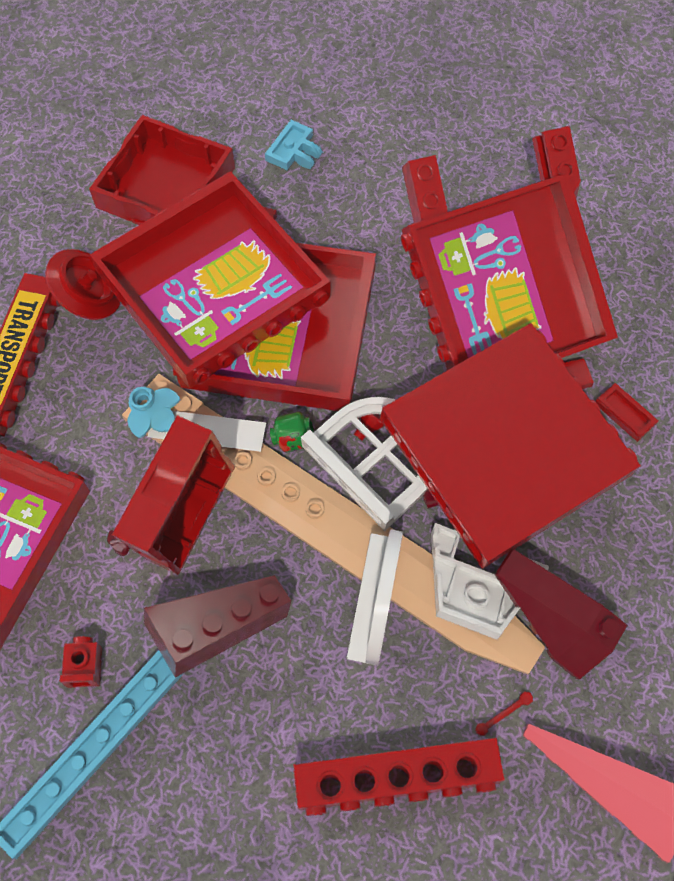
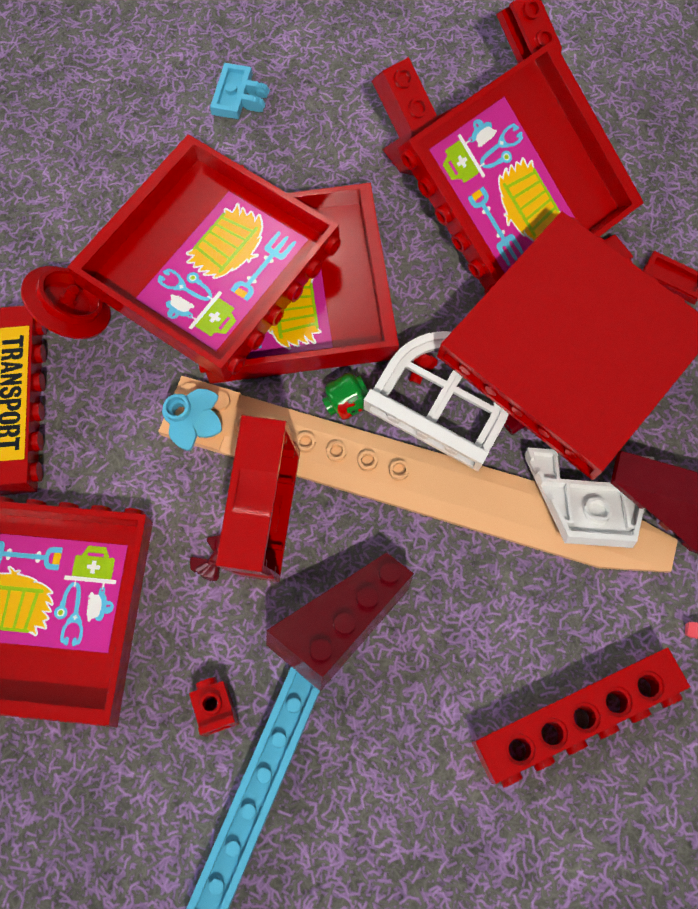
camera: 15 degrees left, 5 degrees up
(157, 170) = (102, 157): red tile -> none
(228, 431) = (299, 412): white sticker -> none
(374, 598) = (503, 541): white window -> none
(524, 699) = (675, 597): red hinge -> none

